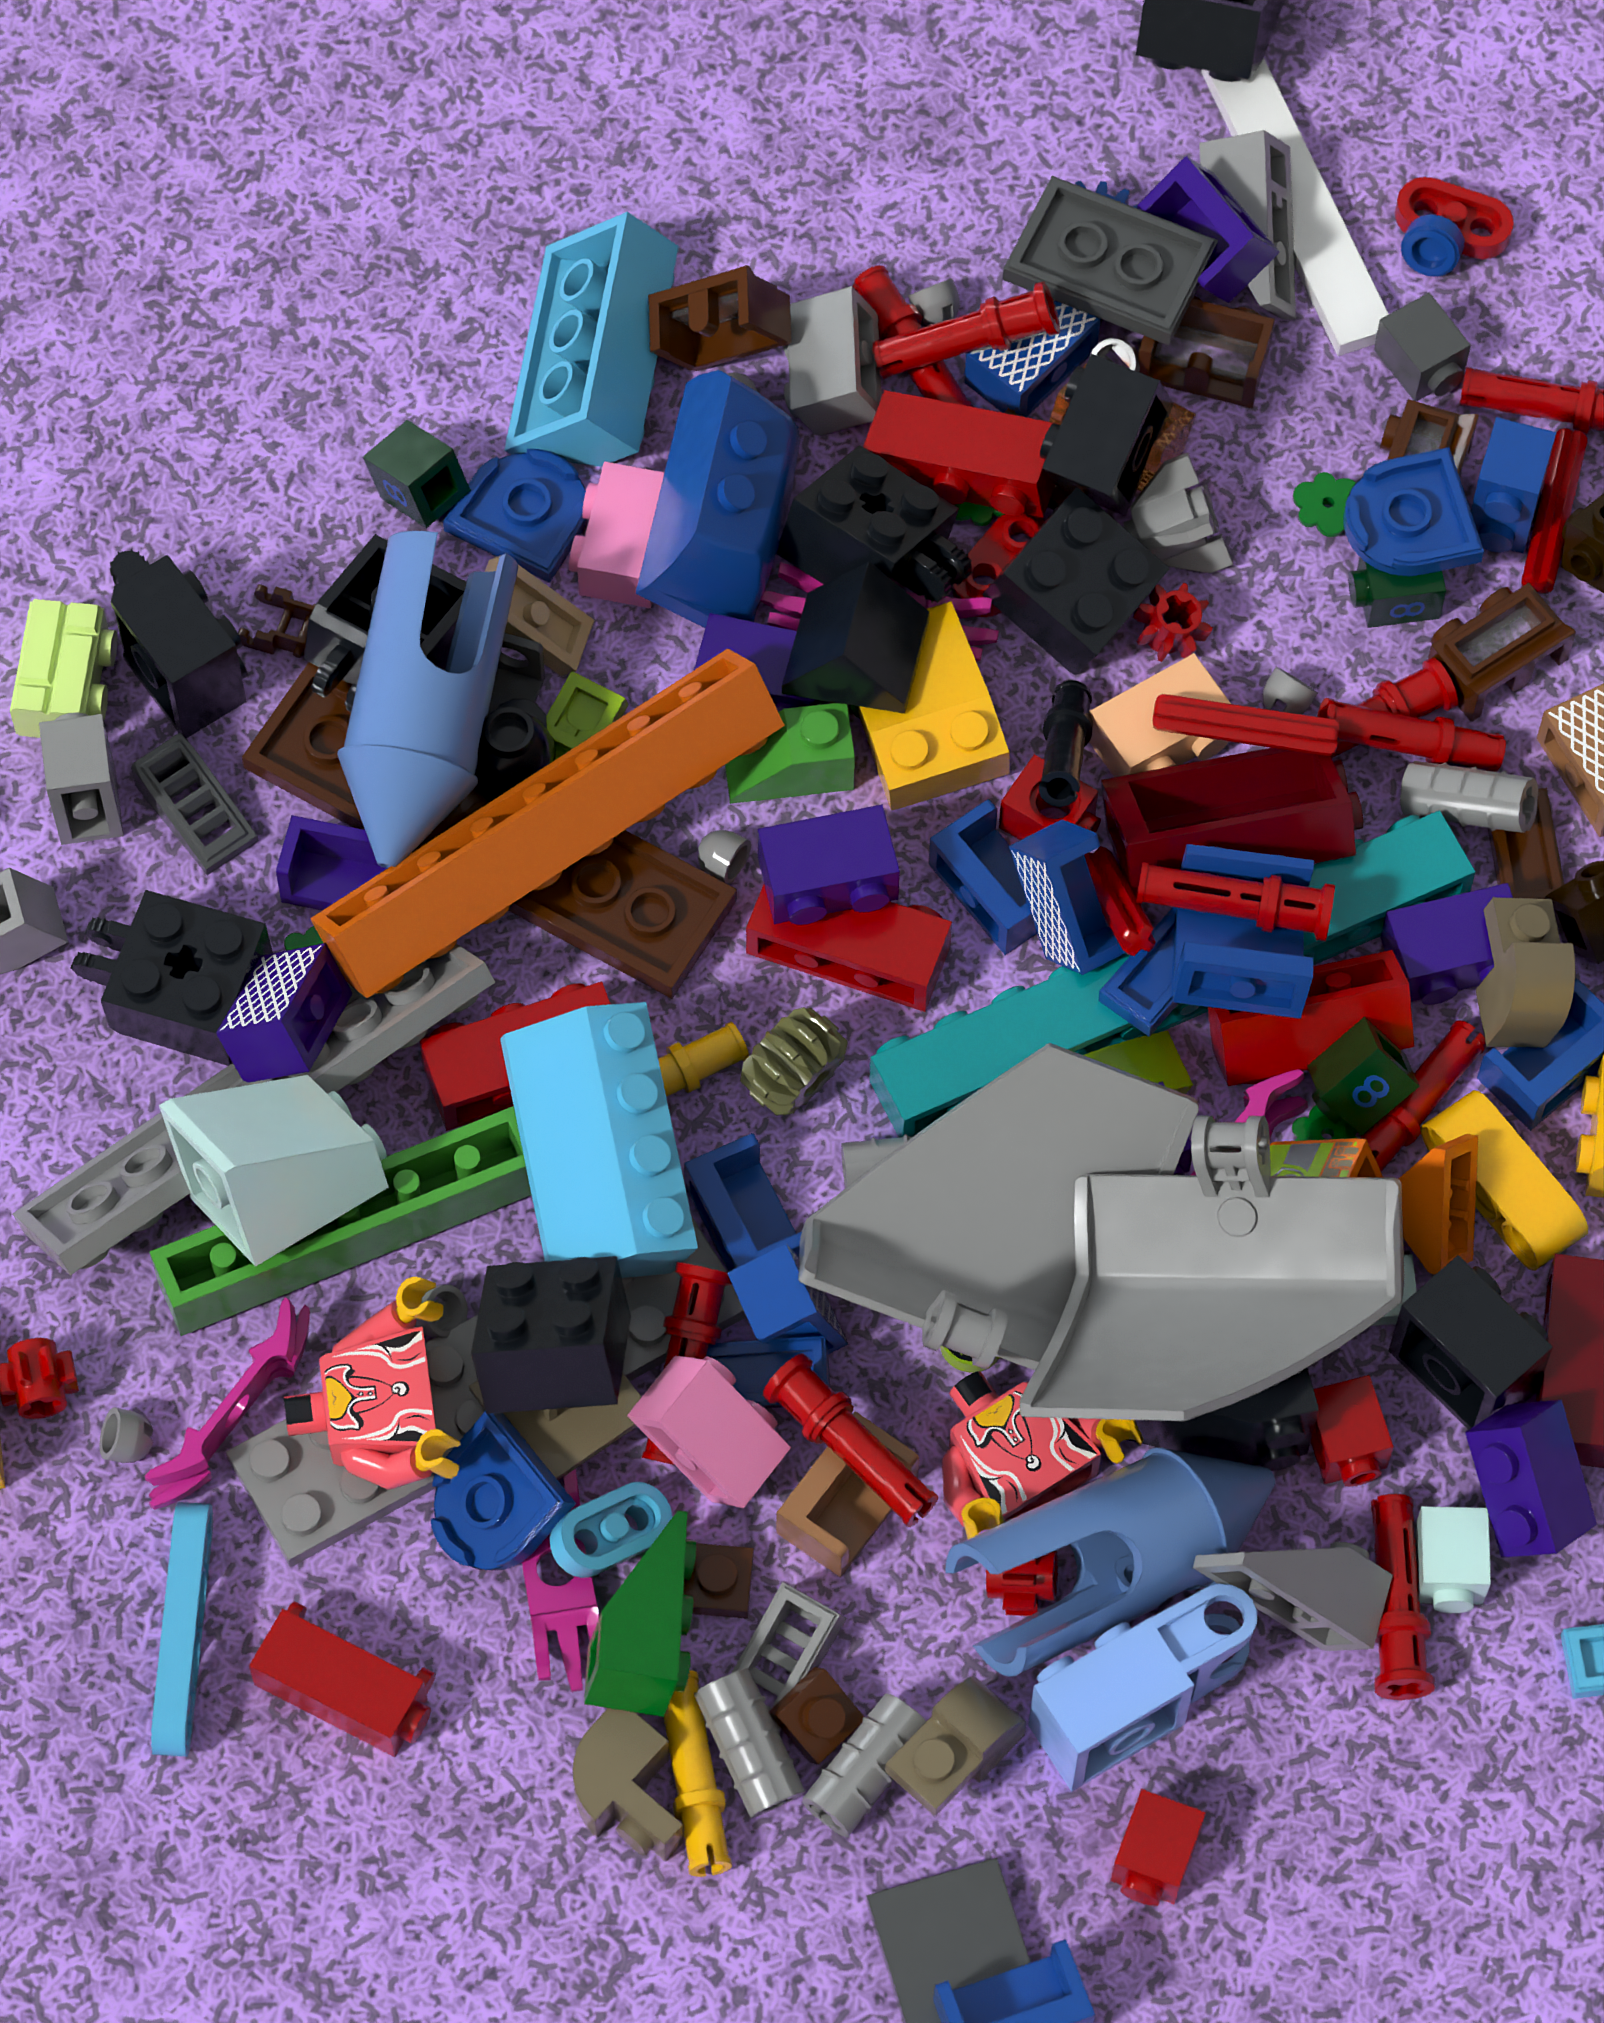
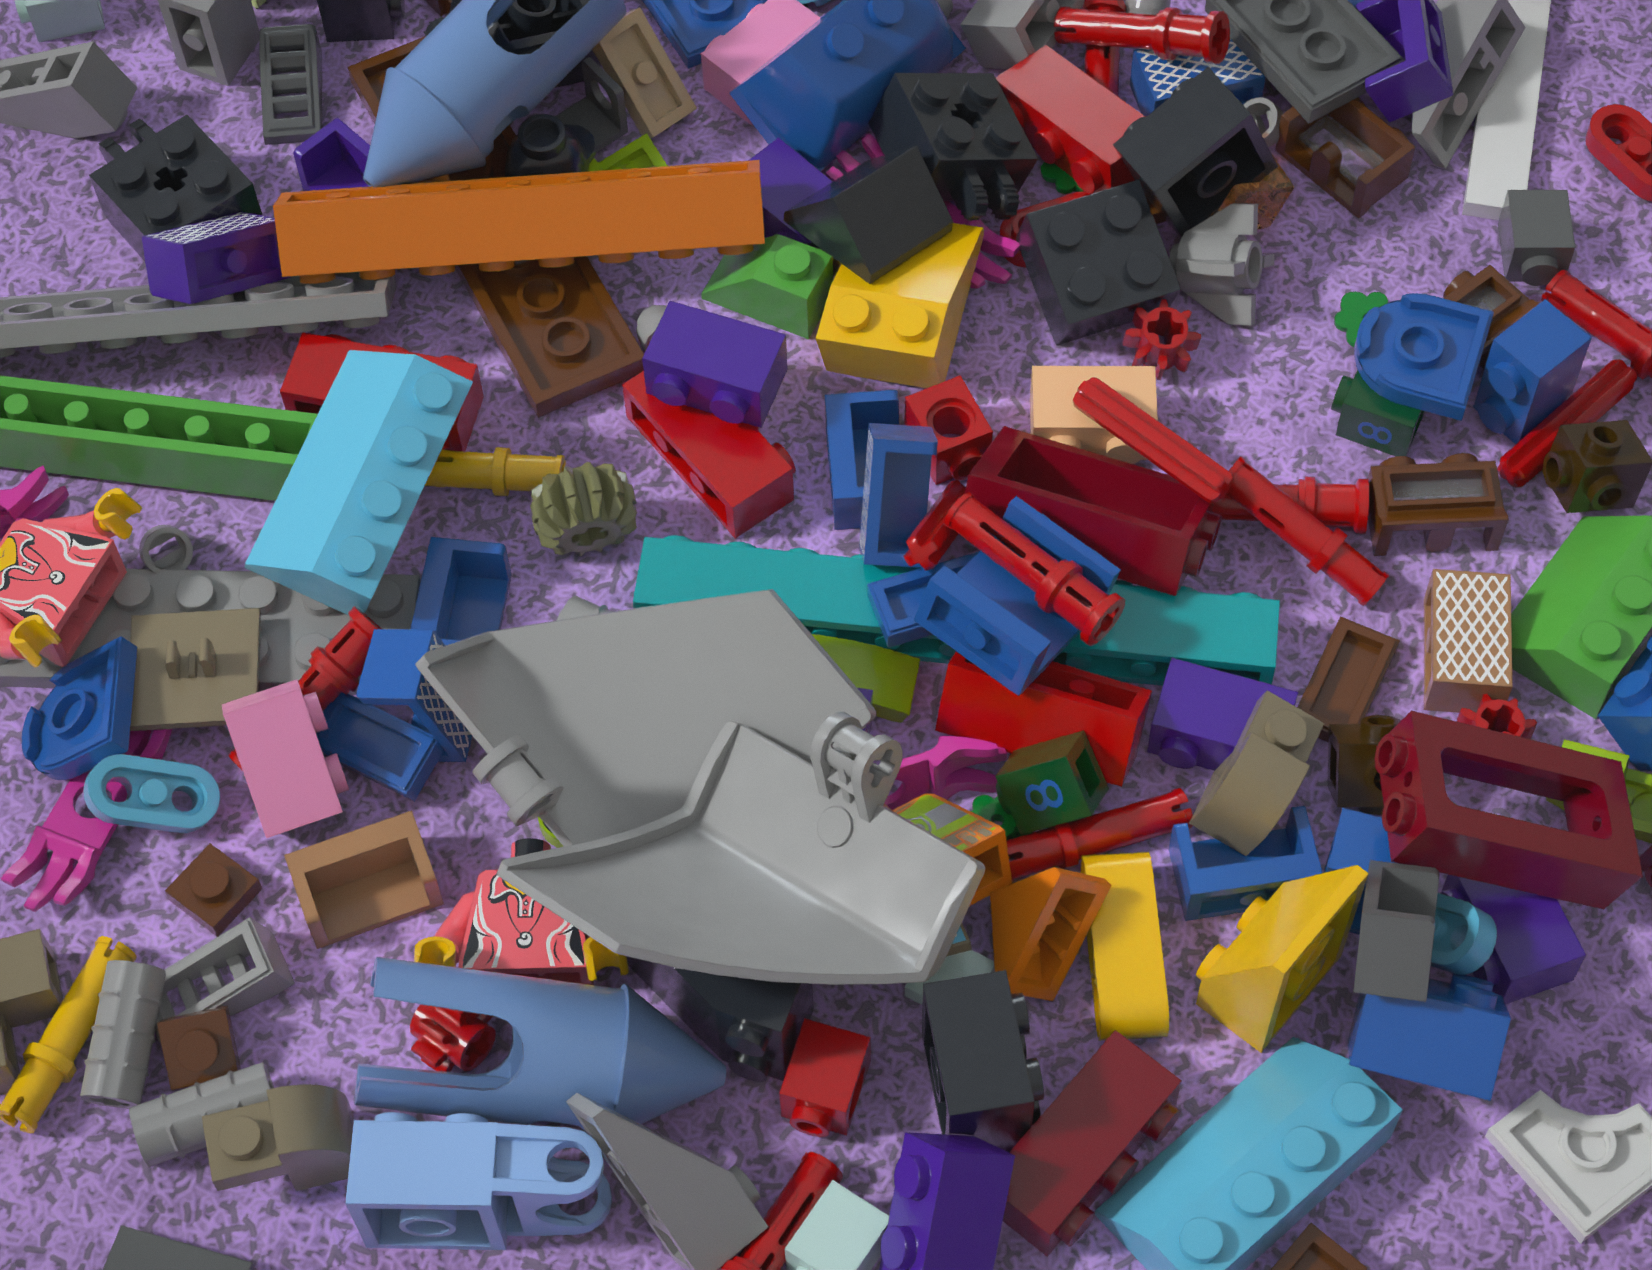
camera: 35 degrees right, 5 degrees down
(273, 1160) = (92, 343): light aqua slope -> none
(551, 1335) = (201, 600): black brick -> none
(637, 1639) = (93, 880): green slope -> none
(830, 1420) = (378, 802): red pin -> none
(1067, 732) = (1002, 374): black pin -> none
(1289, 690) = (1224, 444): light grey hinge -> none
(1432, 245) = (1601, 163): blue tile -> none
(1470, 796) = (1319, 606): light grey axle -> none

